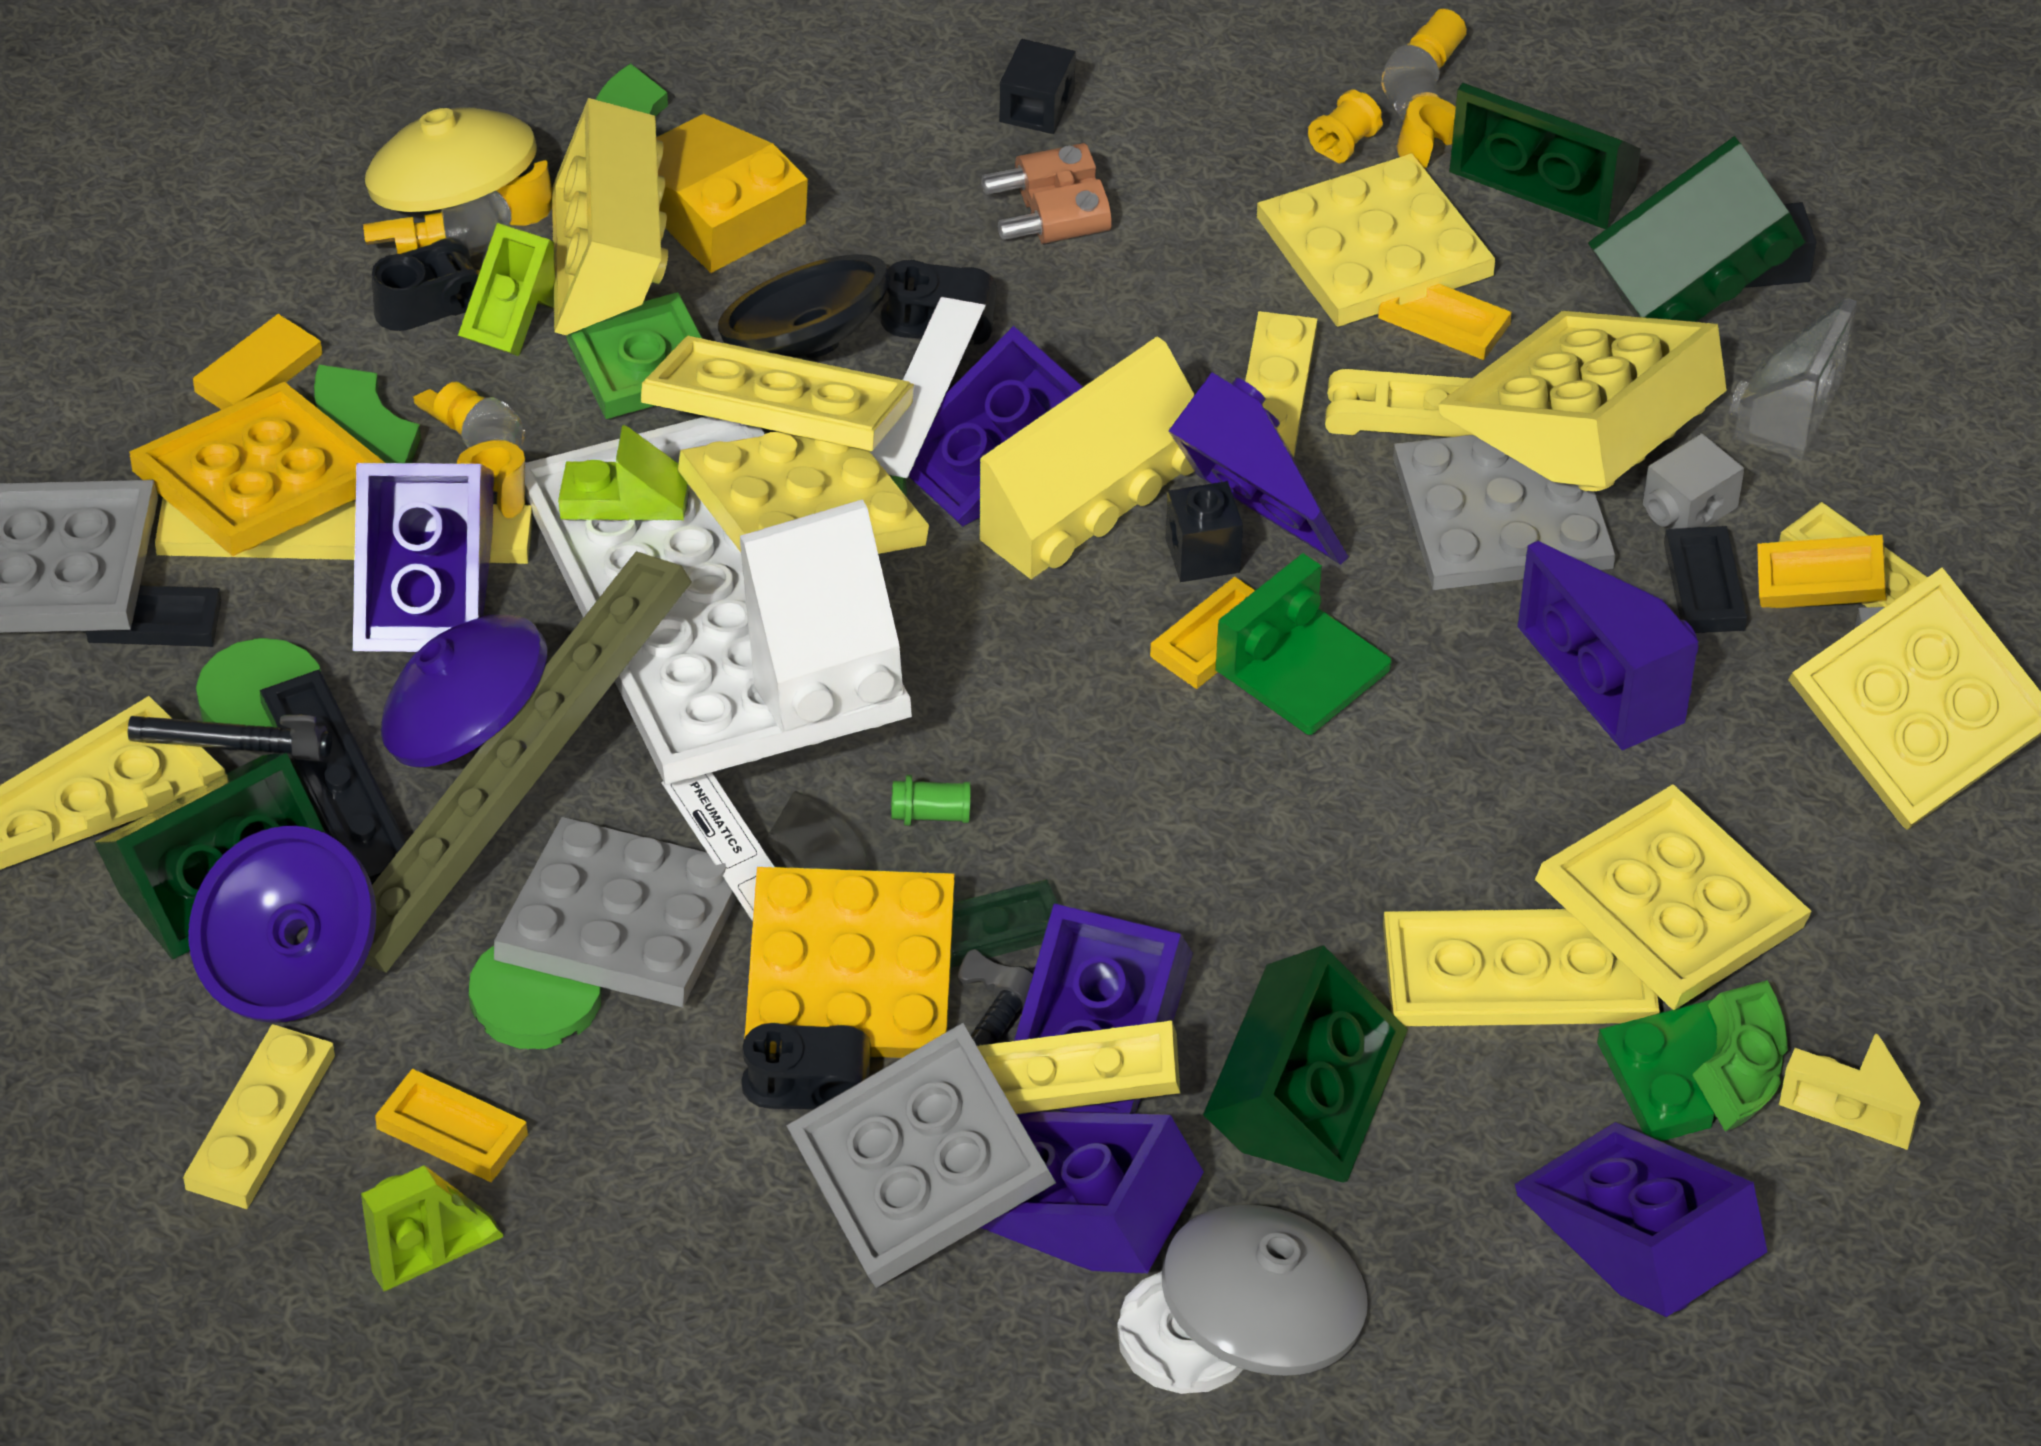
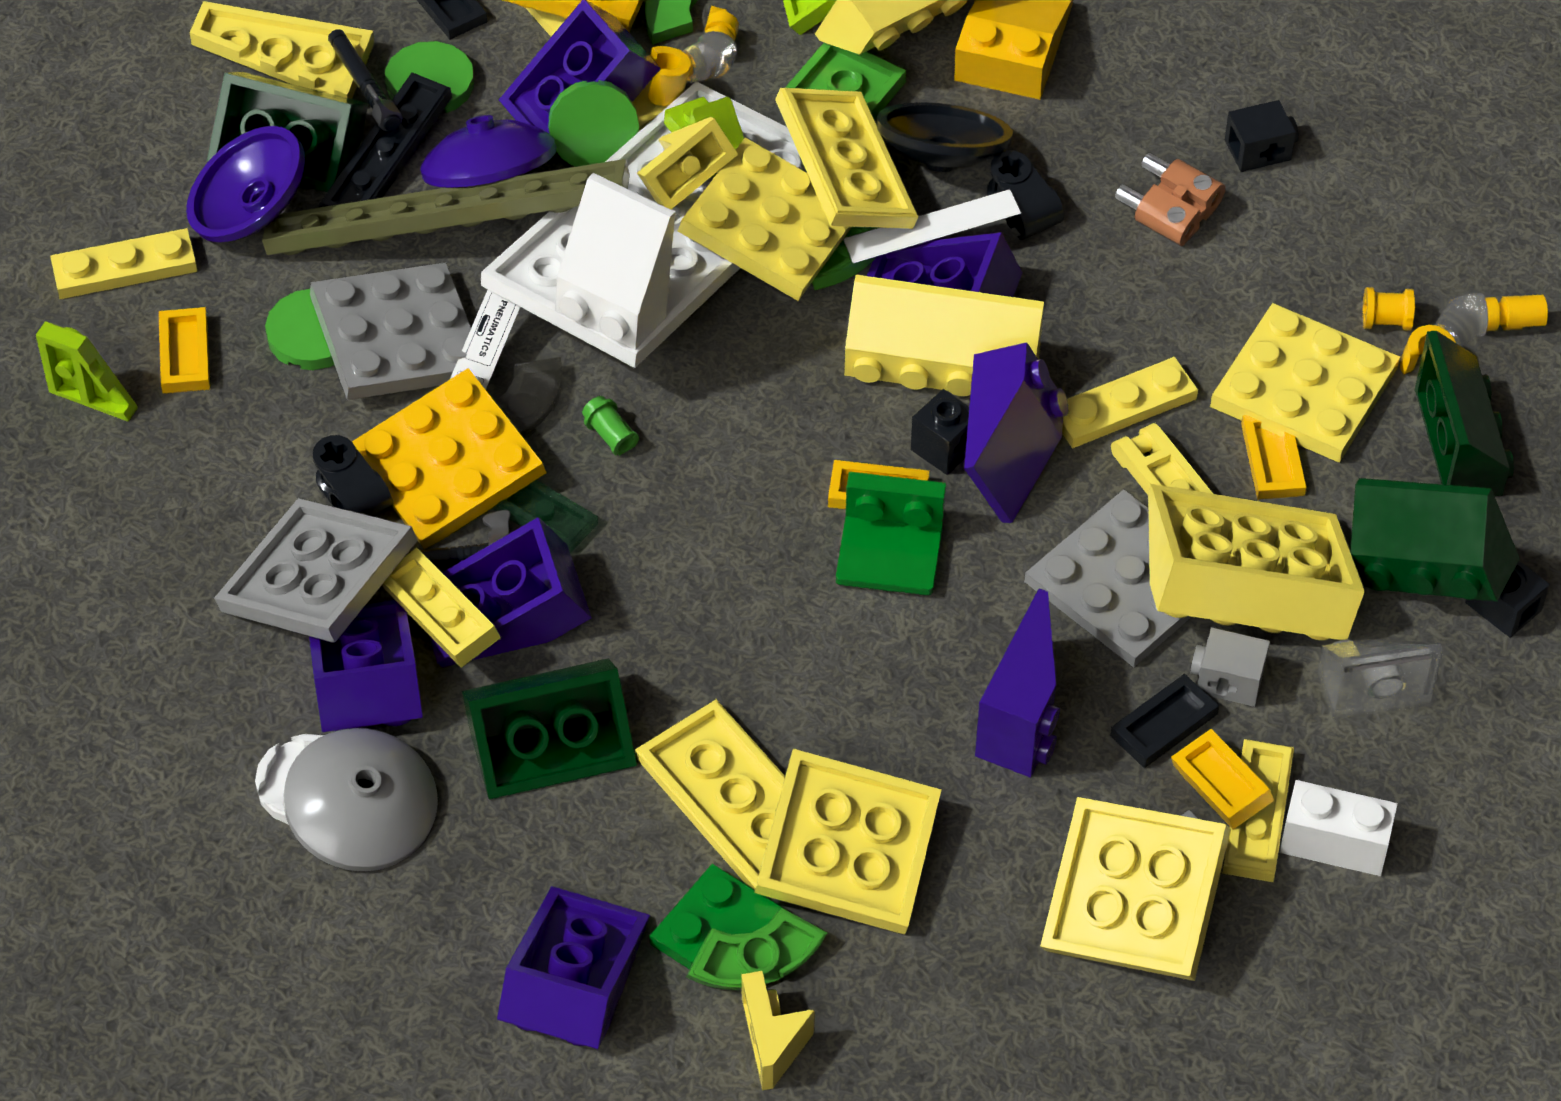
camera: 55 degrees right, 5 degrees up
(507, 569) = (591, 122): none -> bright green tile
(676, 508) = (687, 161): none -> light yellow slope
(1956, 516) = (1338, 827): none -> white brick

